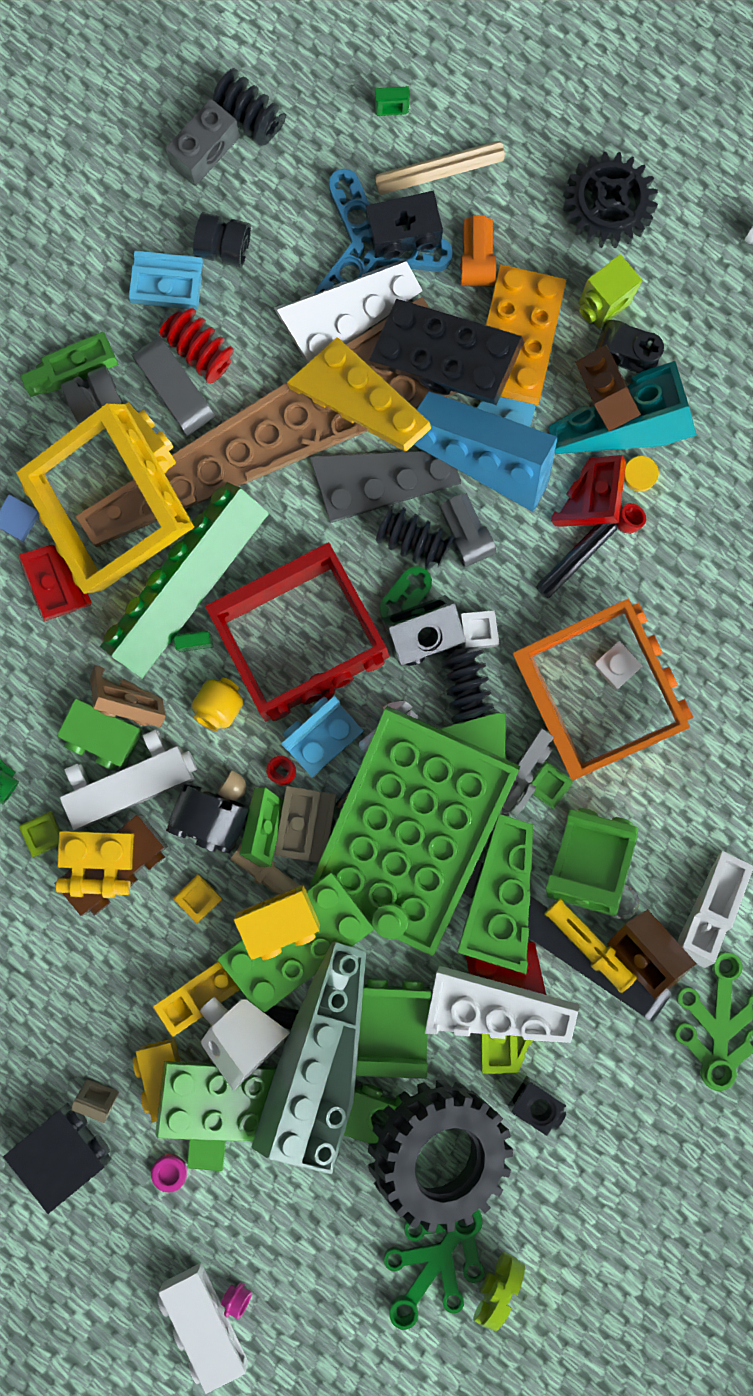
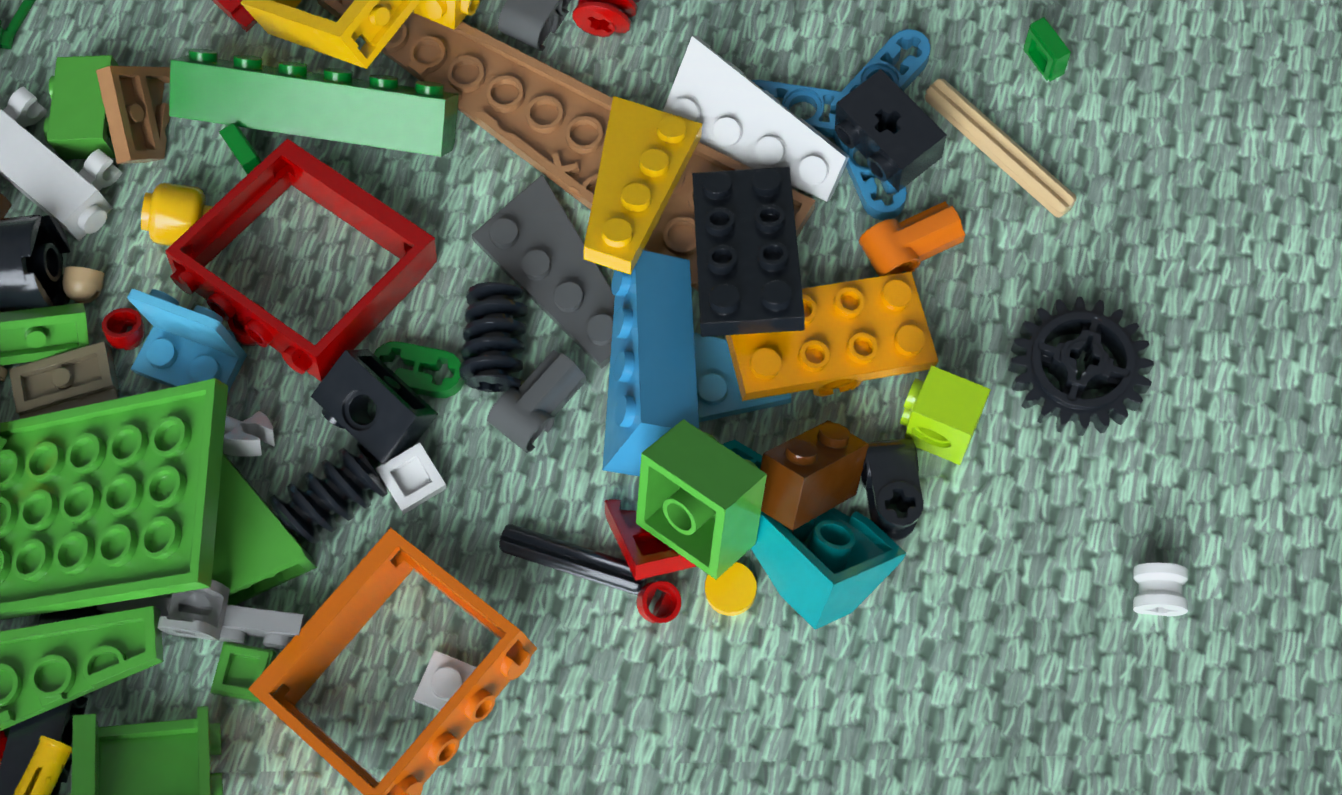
camera: 75 degrees right, 15 degrees down
(598, 455) = (700, 498): none -> bright green brick

